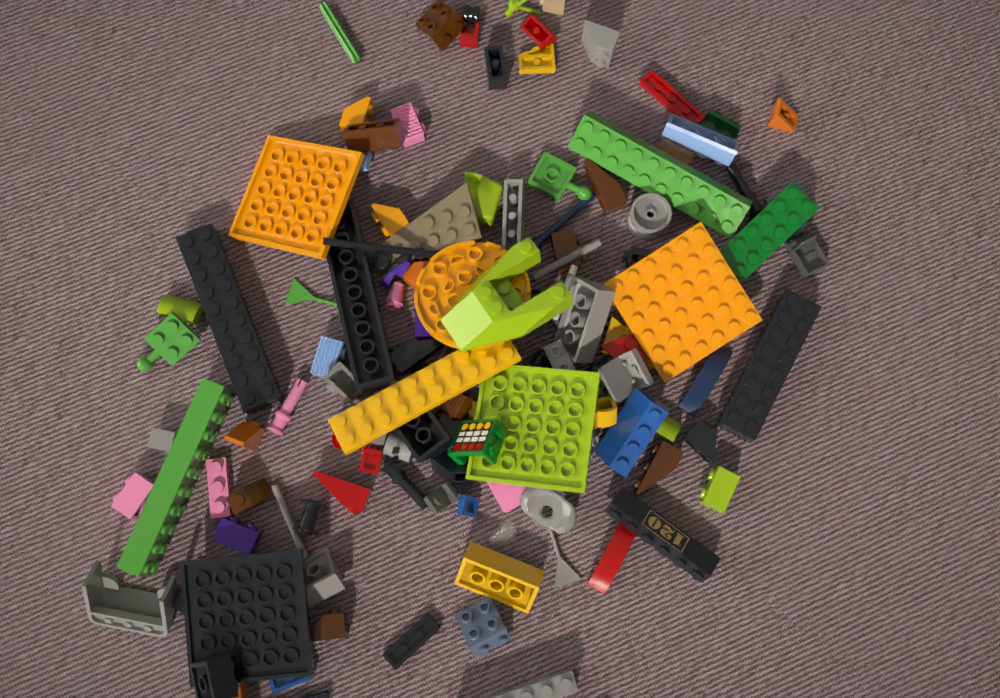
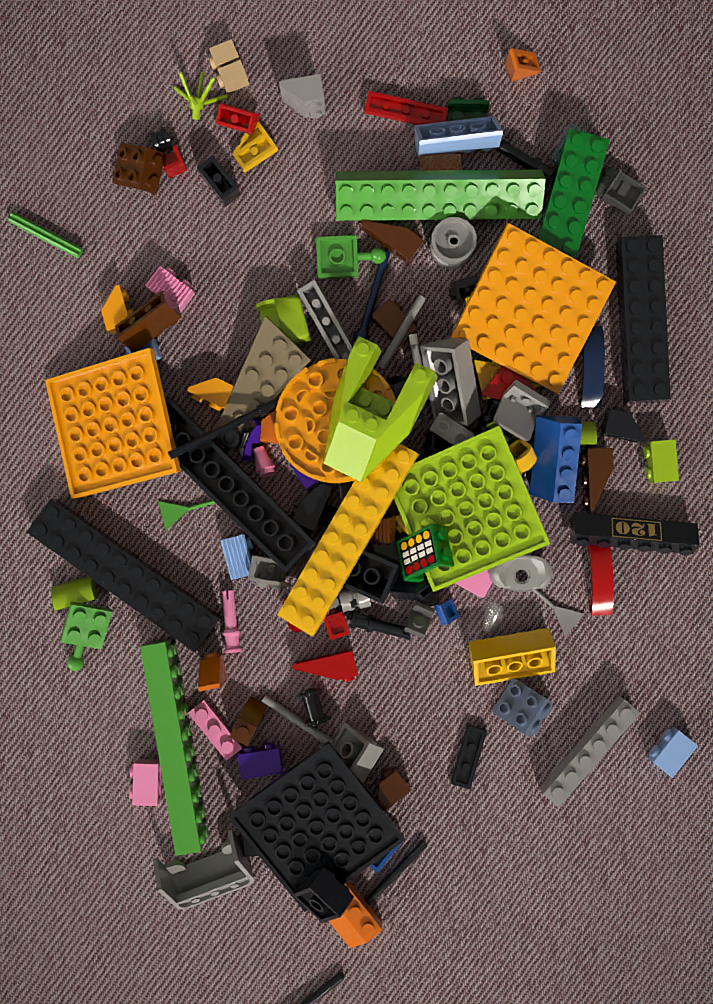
camera: 30 degrees left, 10 degrees up
(161, 439) = (138, 719): light grey brick -> none

